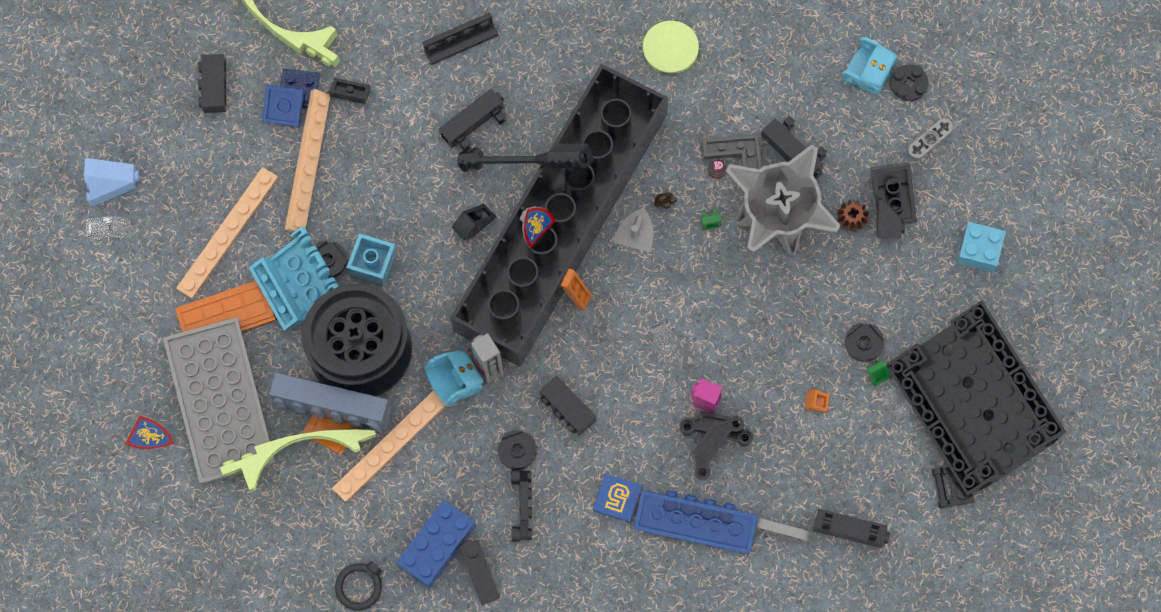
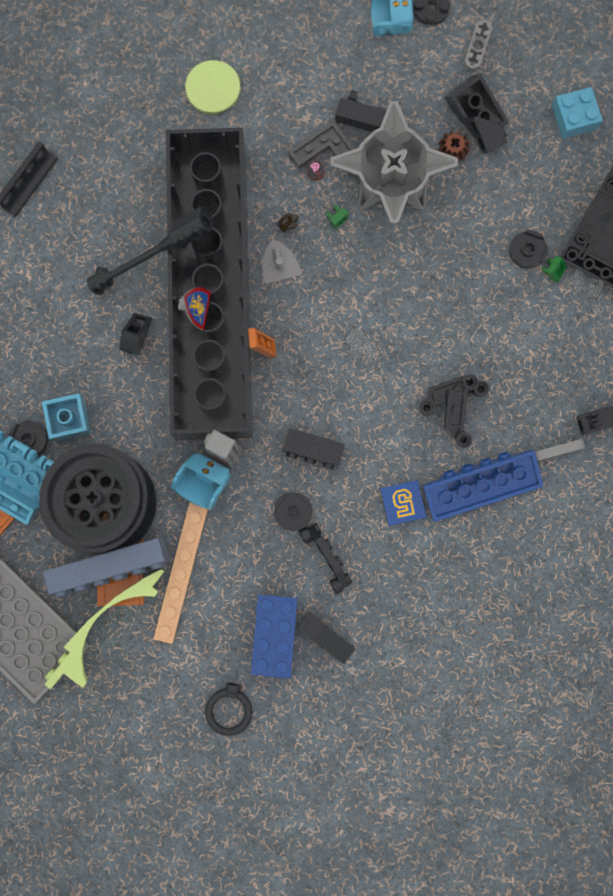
camera: 30 degrees left, 10 degrees up
(471, 118) = (79, 243): black brick -> none
(706, 395) = (428, 371): dark pink brick -> none
(817, 401) = (518, 322): orange slope -> none

